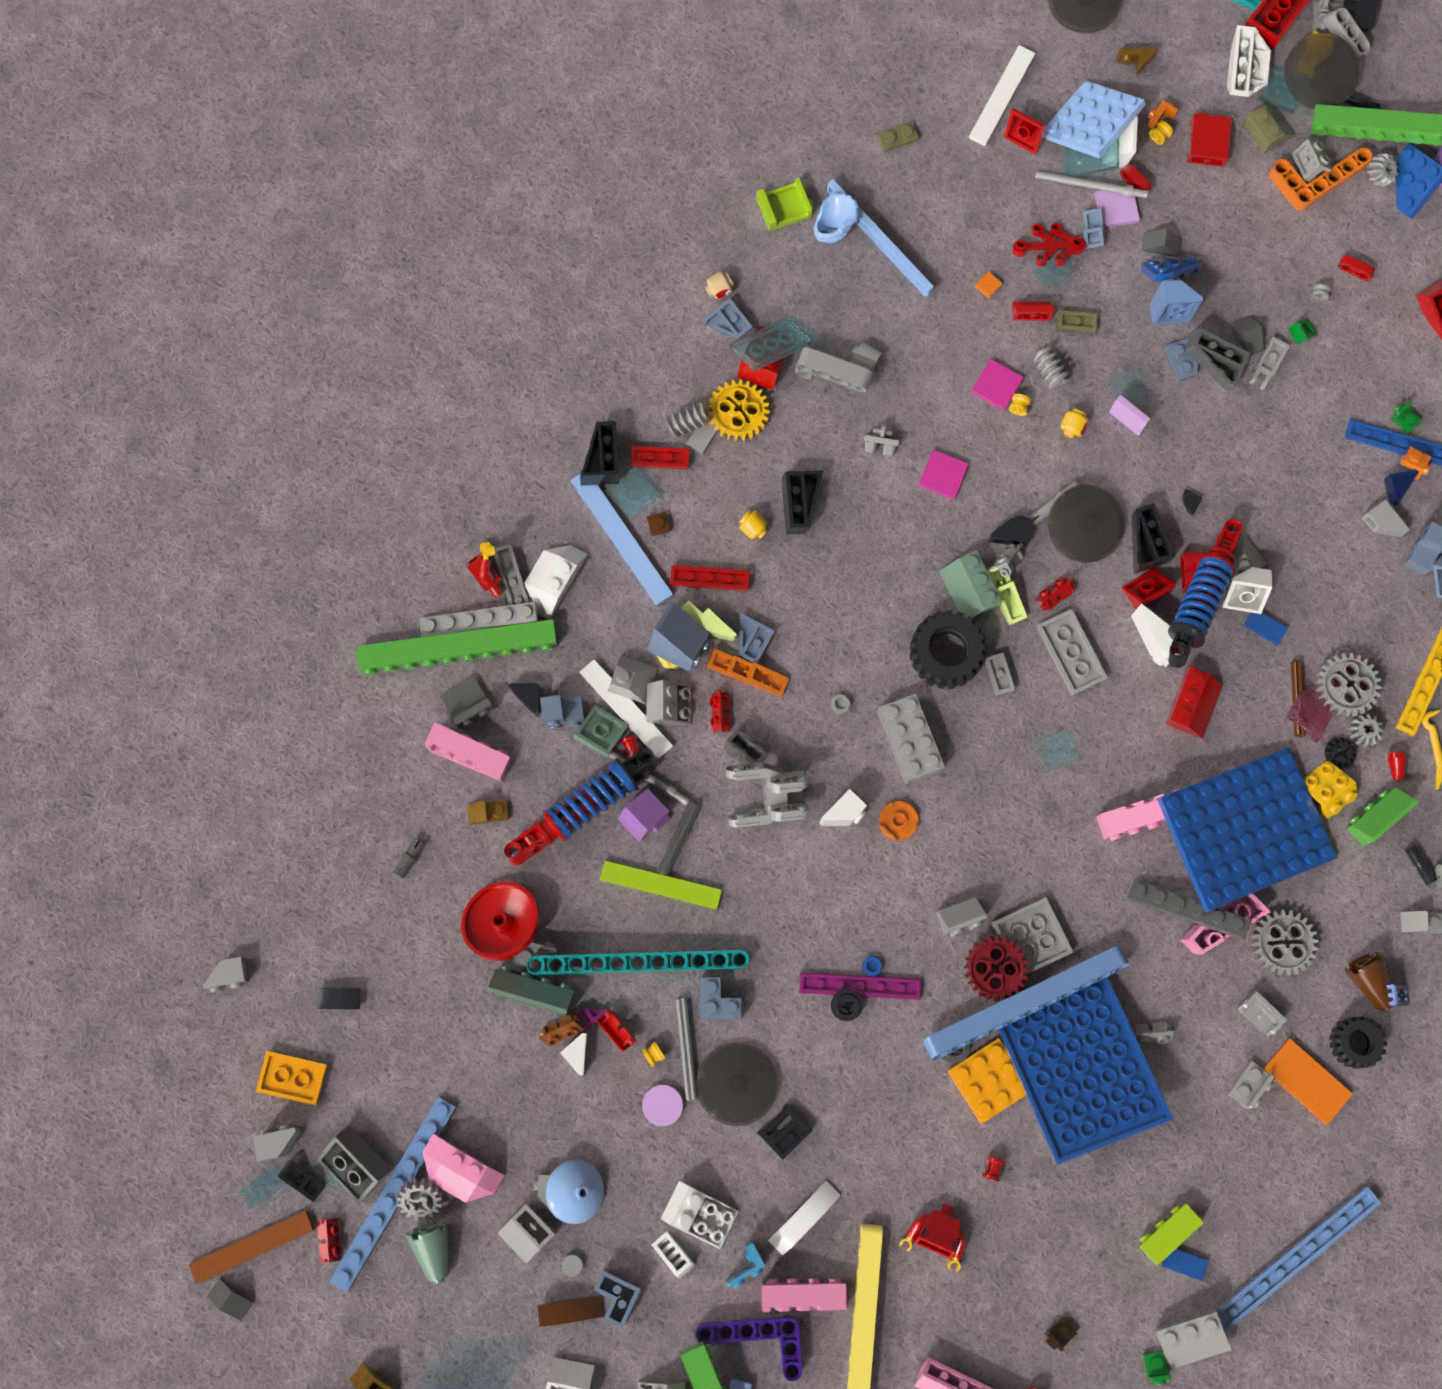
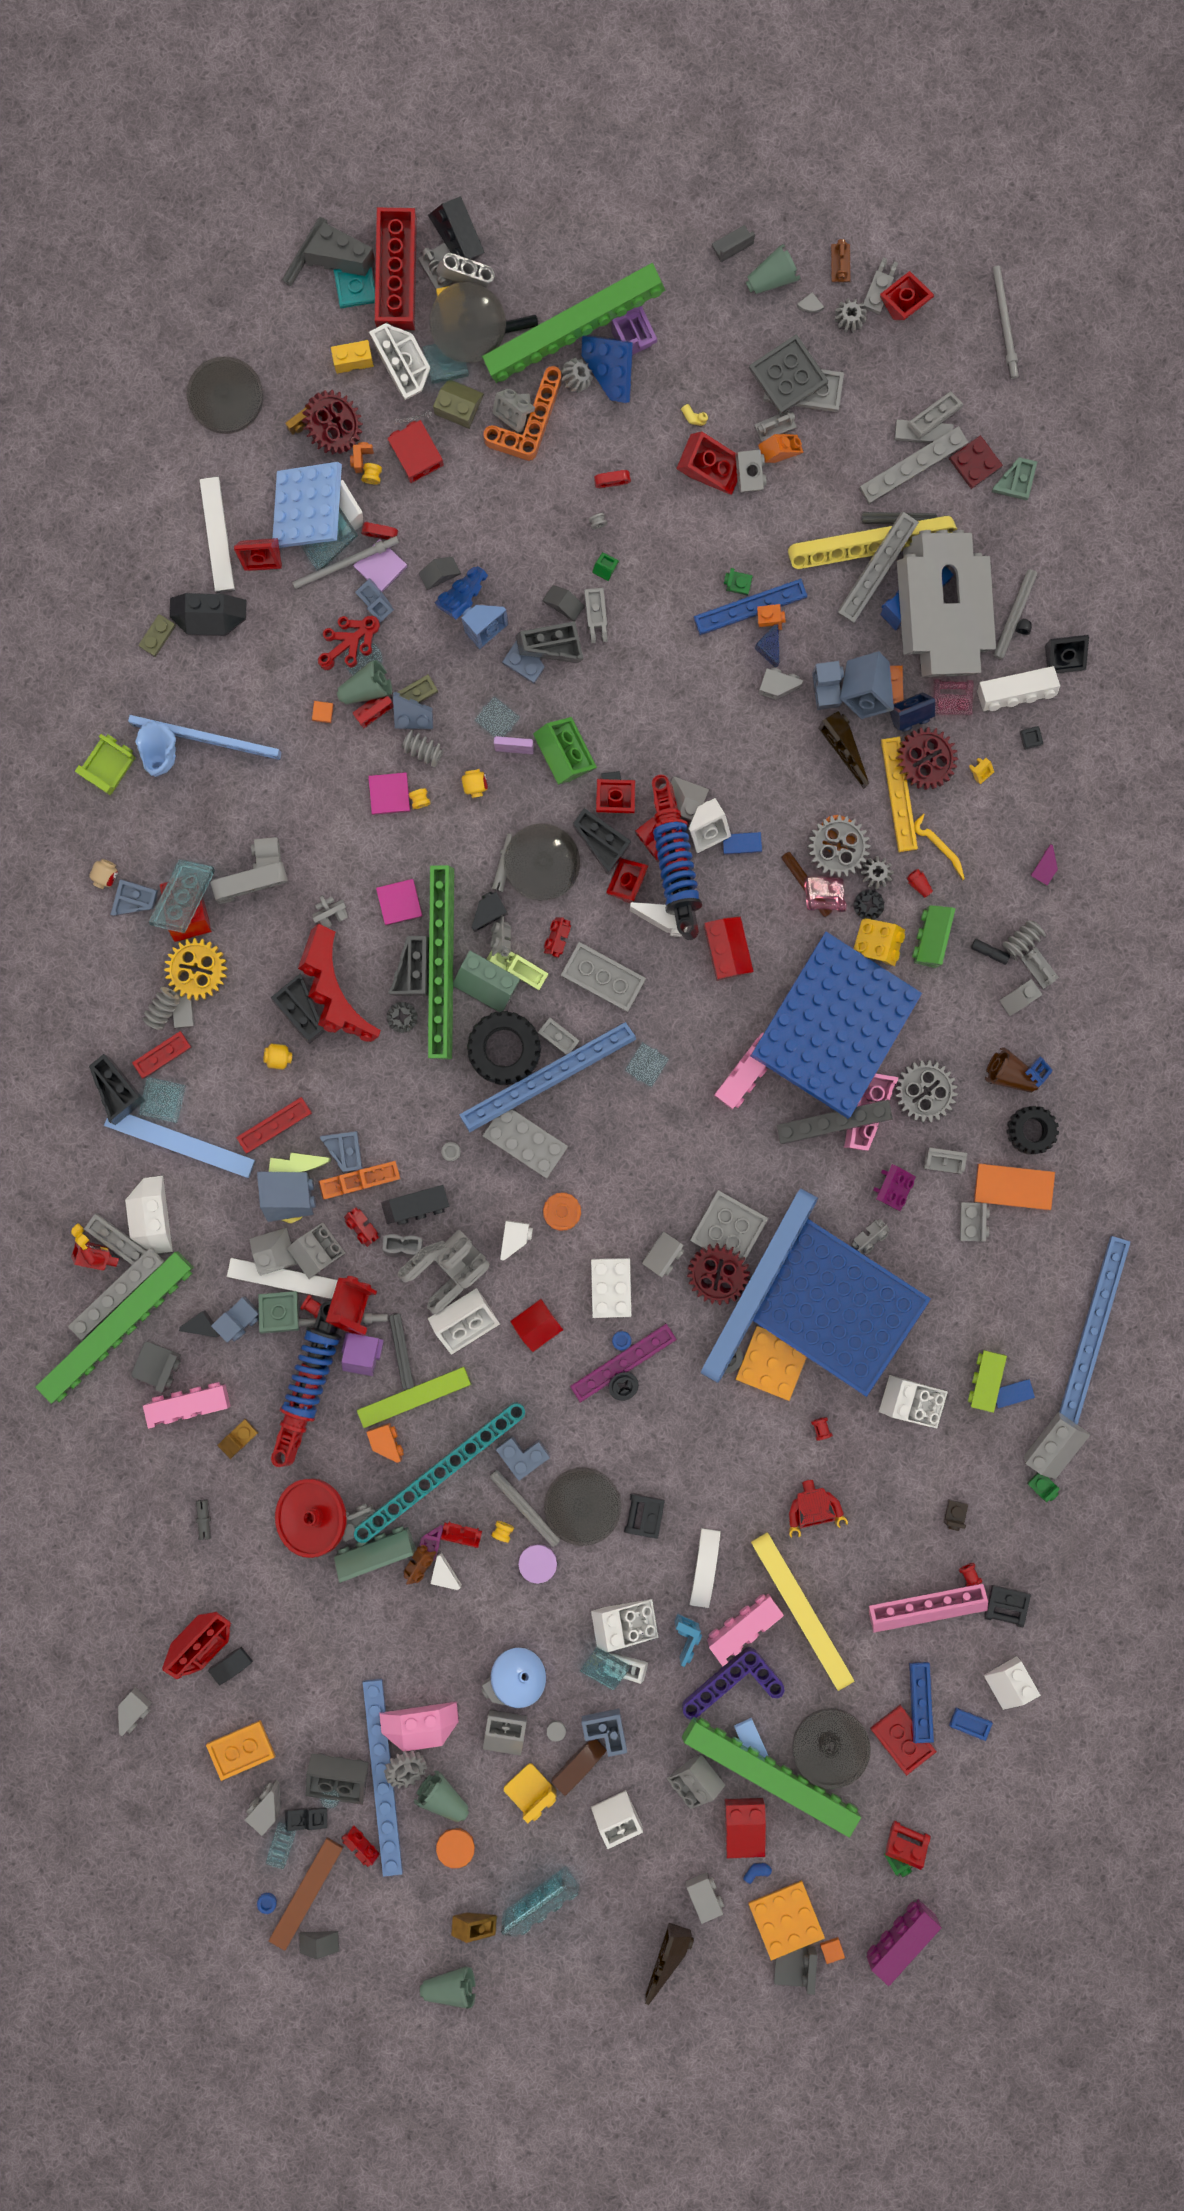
camera: 35 degrees left, 10 degrees up
(212, 1230) = (266, 1903): none -> blue tile
(325, 959) = (197, 1645): none -> red wedge
(409, 1304) = (455, 1848): none -> orange tile
(511, 1302) = (531, 1792): none -> yellow bracket
(608, 903) = (384, 1443): none -> orange slope
(656, 1239) = (605, 1668): none -> clear light blue tile
(658, 524) = (201, 1110): reddish brown plate -> none
(666, 766) = (349, 1305): none -> red panel
(750, 851) = (463, 1321): none -> white slope
(779, 724) = (415, 1205): none -> black wedge
(808, 900) = (536, 1325): none -> red slope
(834, 498) = (325, 989): none -> red arch
(883, 574) = (409, 1022): none -> dark grey gear
(896, 913) = (611, 1287): none -> white brick
(918, 534) = (413, 969): none -> dark grey wedge
(944, 545) = (441, 962): none -> bright green brick
(951, 146) = (207, 613): none -> black wedge
(968, 698) = (547, 1077): none -> medium blue plate
(1040, 285) = (365, 684): none -> sand green cone
(1061, 334) = (411, 714): none -> sand blue wing
(1090, 1204) = (913, 1402): none -> white slope
(1163, 72) = (319, 429): none -> dark red gear
(1167, 449) = (564, 750): none -> bright green slope
(1185, 514) = (615, 796): none -> red slope
(1203, 1004) = (895, 1187): none -> magenta plate
(1208, 36) = (352, 356): none -> yellow brick
(1410, 594) = (840, 737): none -> dark brown wedge

